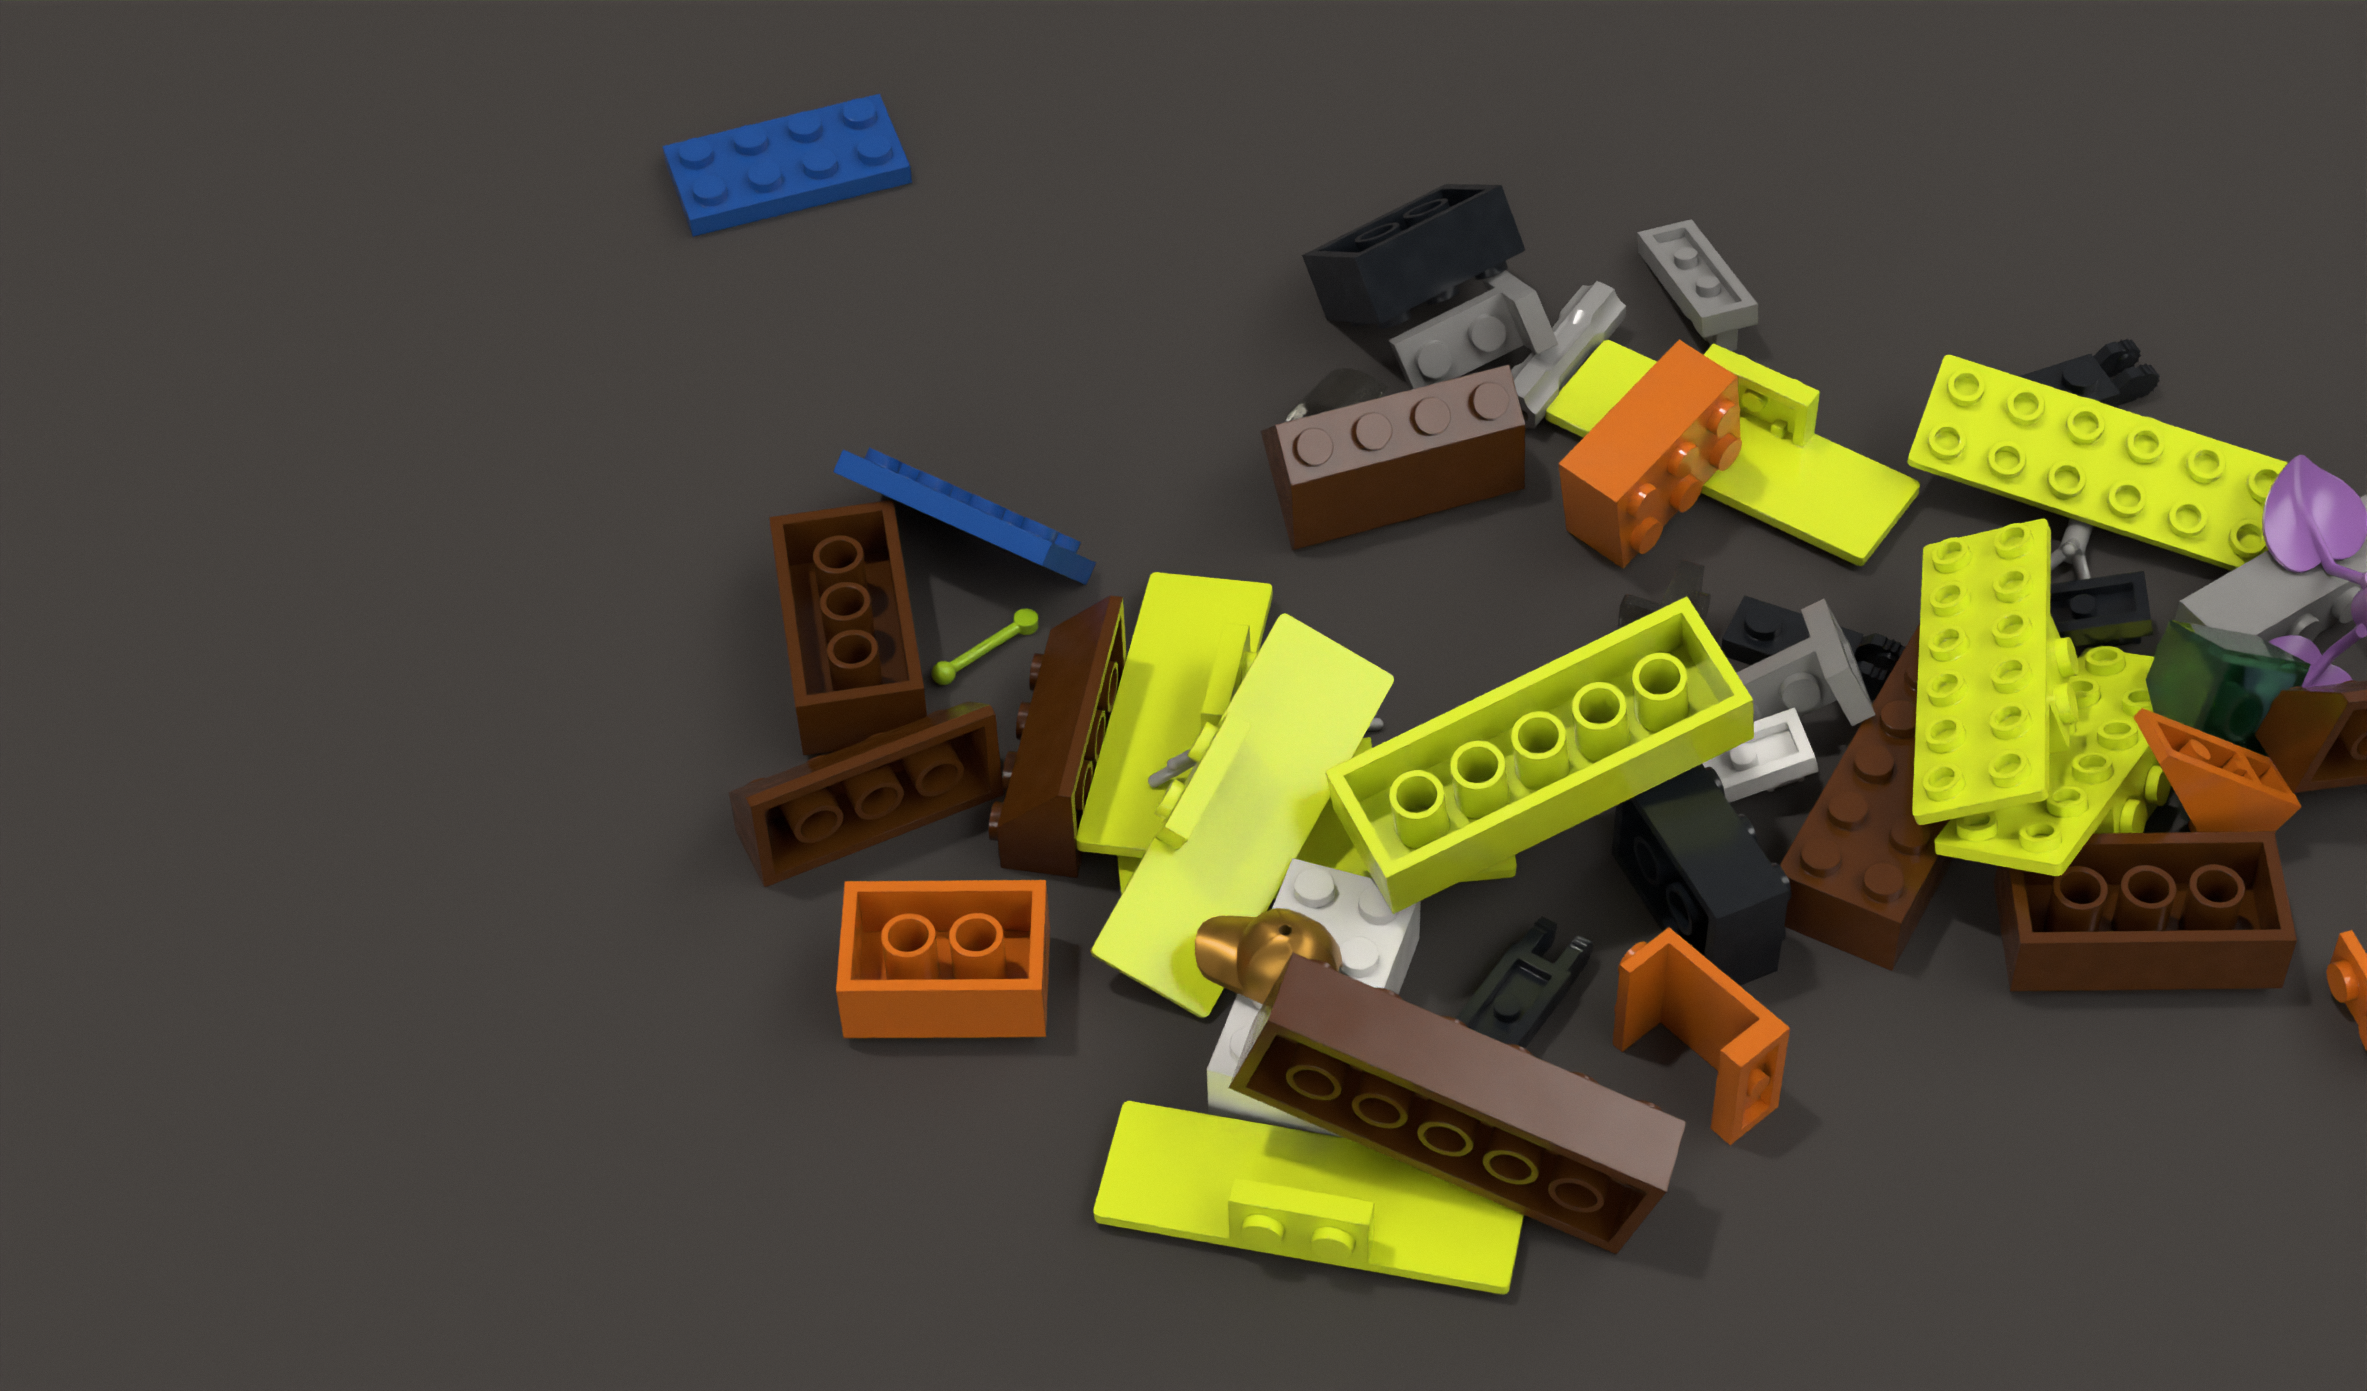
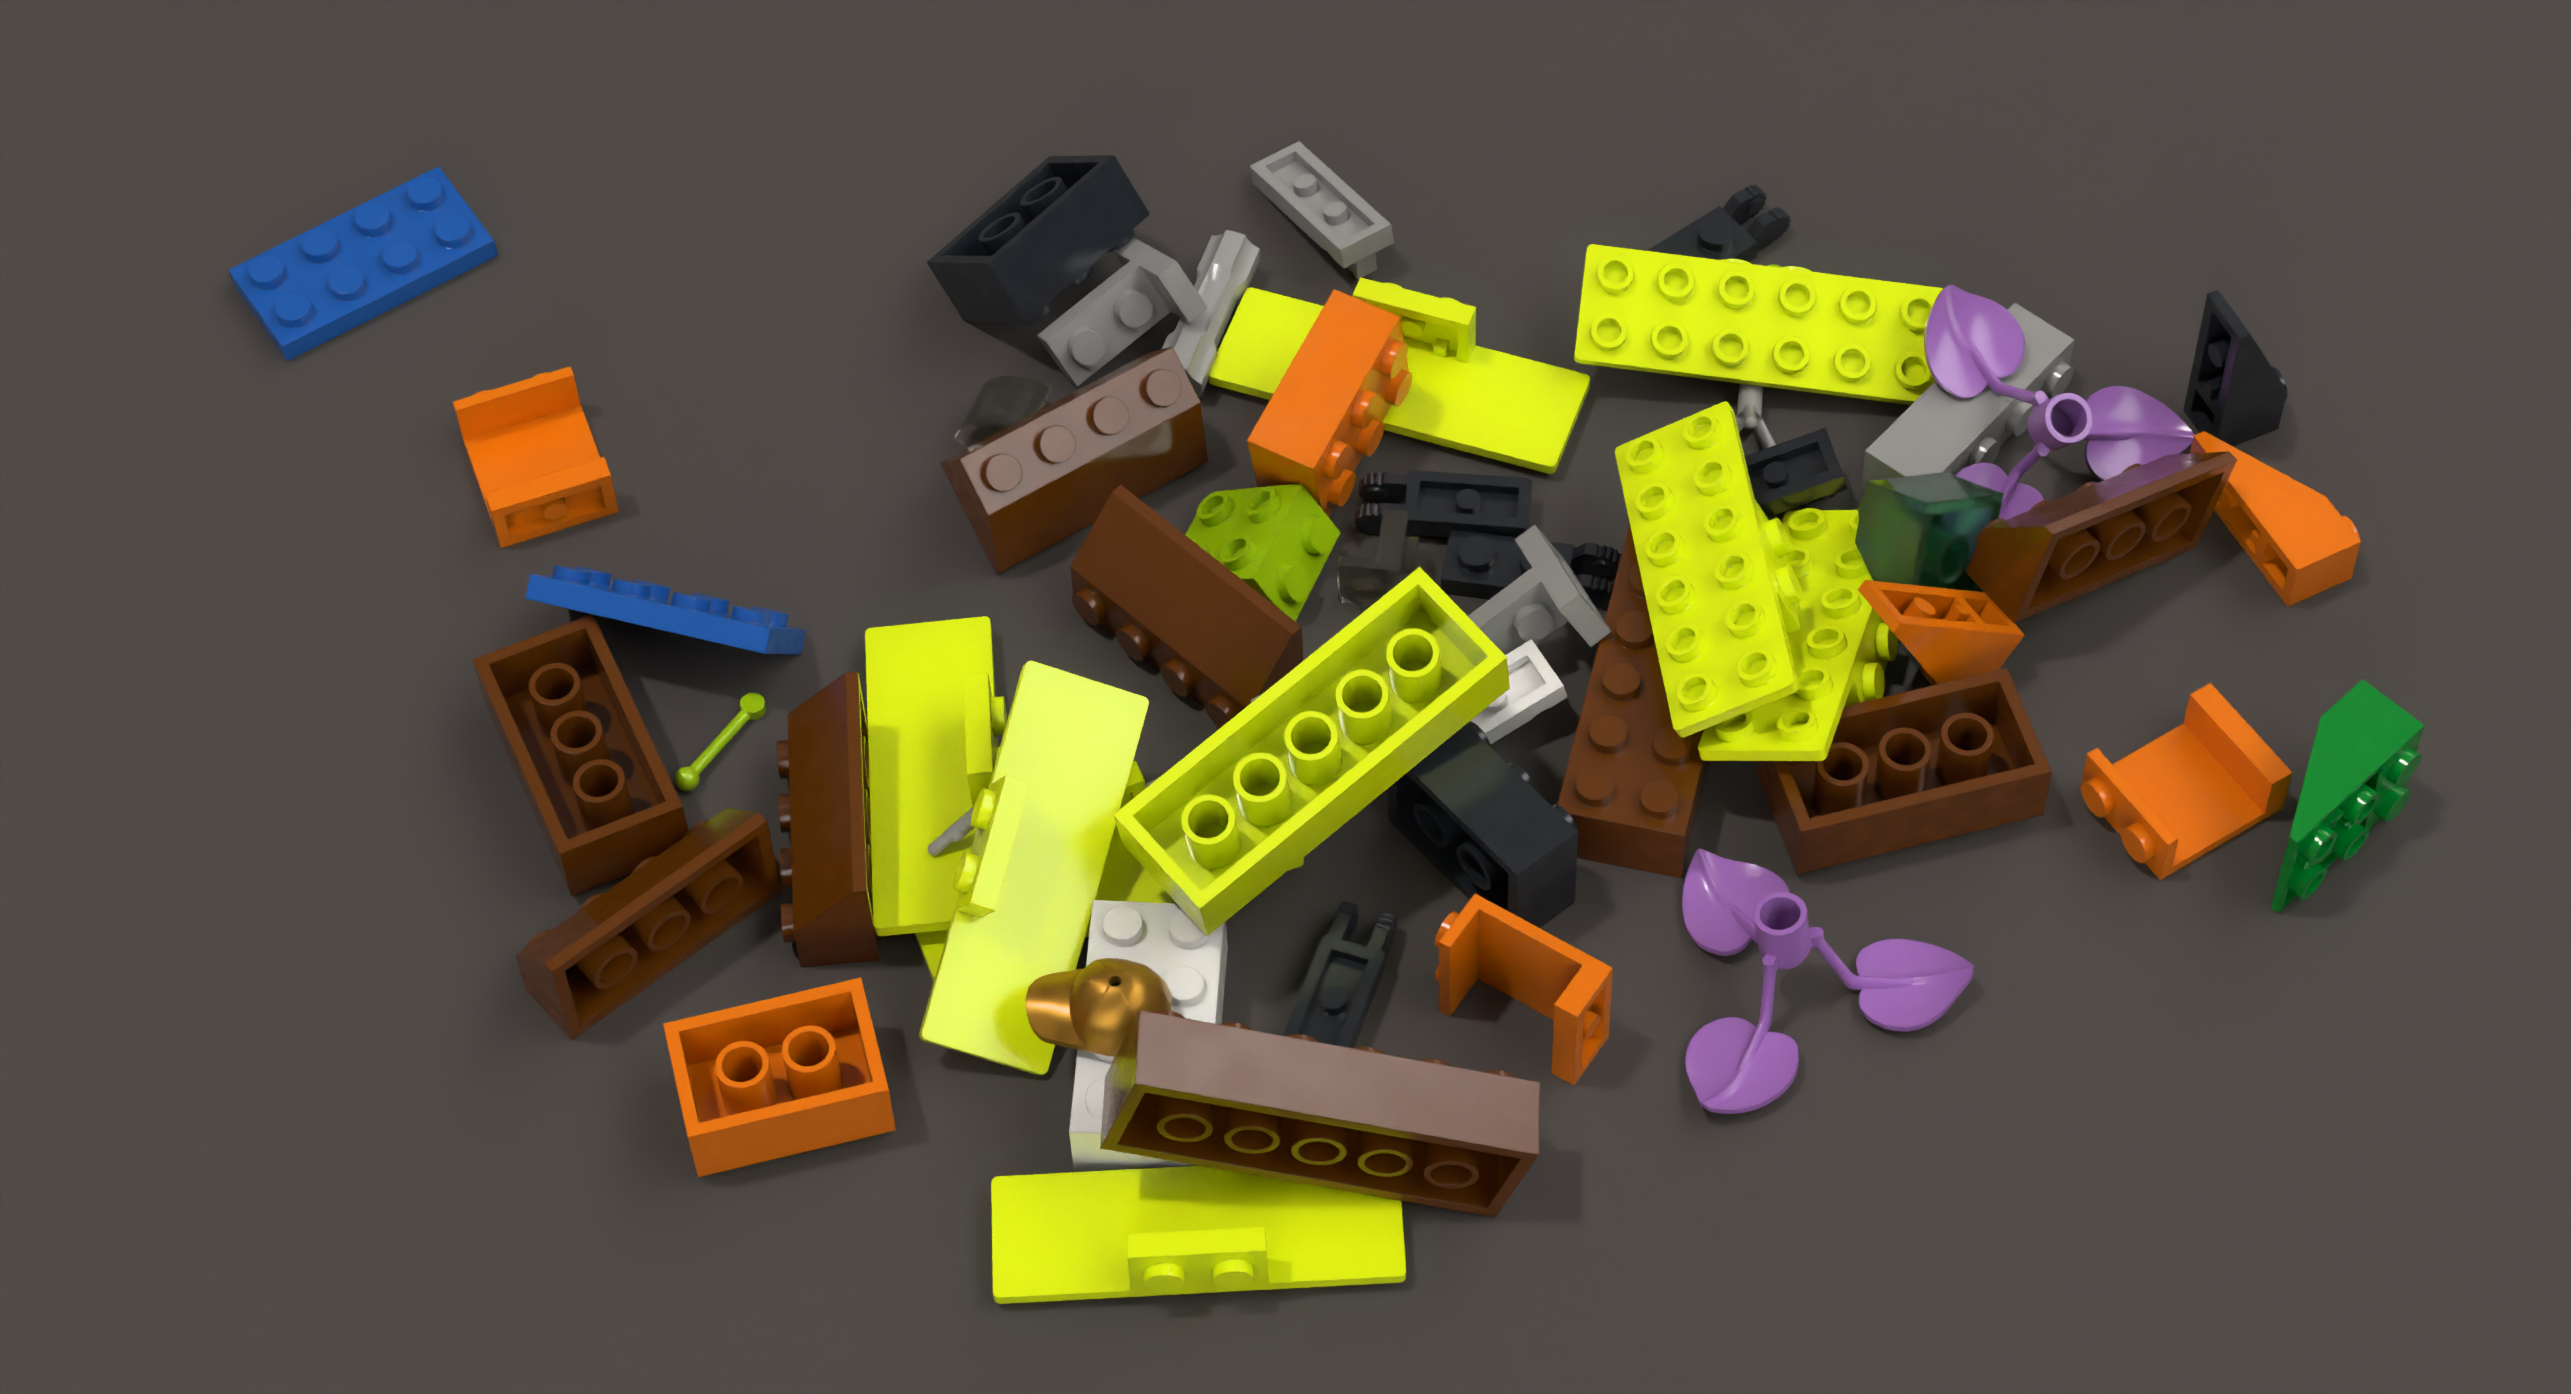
camera: 15 degrees left, 5 degrees up
(889, 359) = (535, 457): none -> orange panel
(1450, 601) = (1181, 609): none -> reddish brown slope
(1556, 569) = (1268, 539): none -> lime bracket
(1747, 569) = (1446, 502): none -> black hinge
(1933, 1004) = (1735, 902): none -> medium lavender plant

